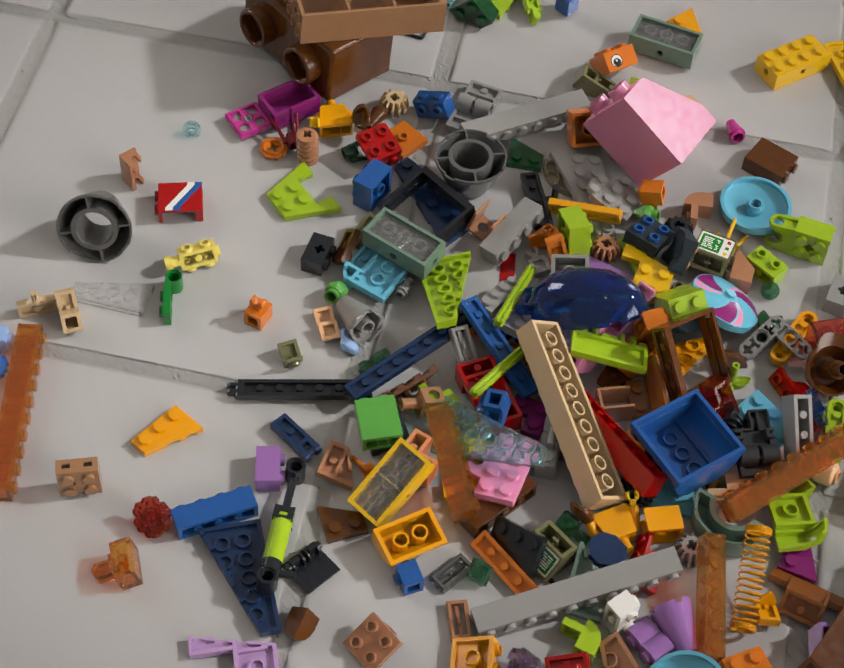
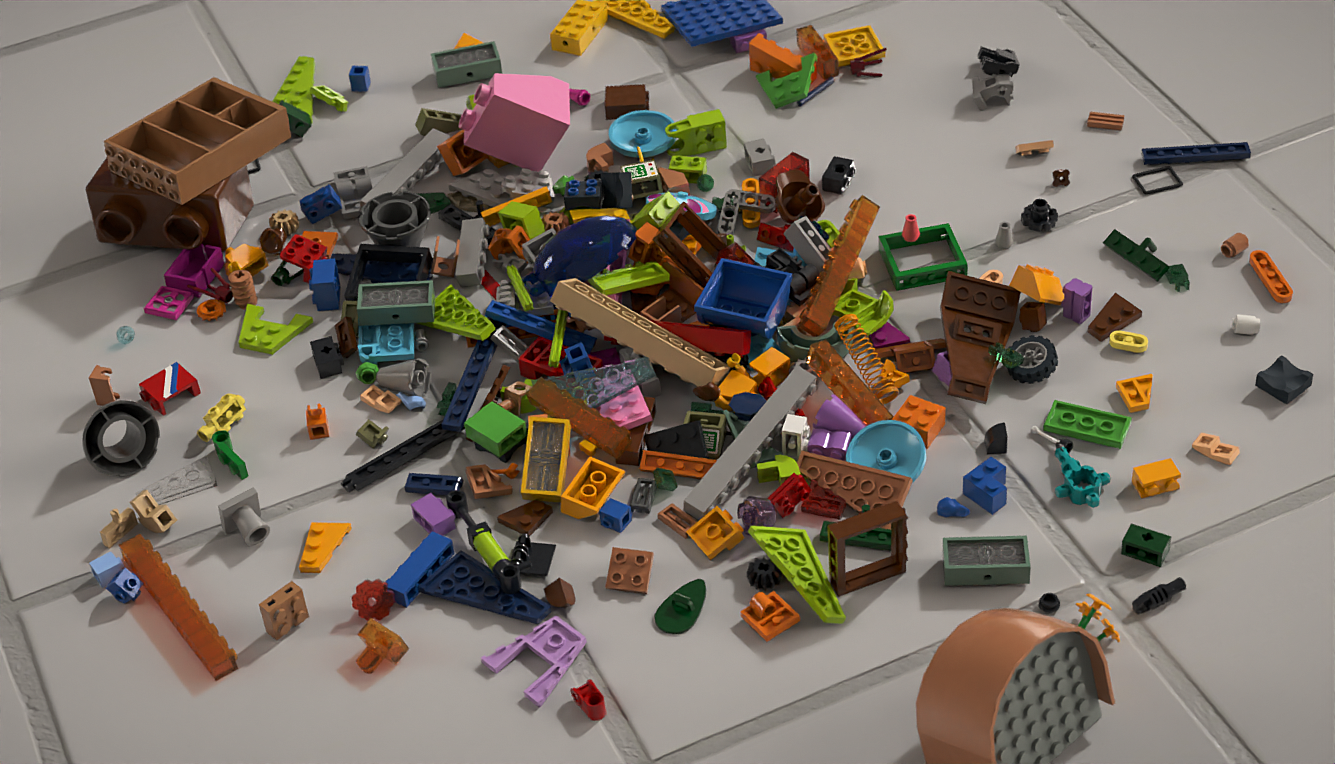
camera: 30 degrees left, 10 degrees down
(126, 361) = (244, 514): none -> light grey plant
(614, 58) = (441, 94): orange brick -> none
(652, 192) = (557, 165): orange brick -> none

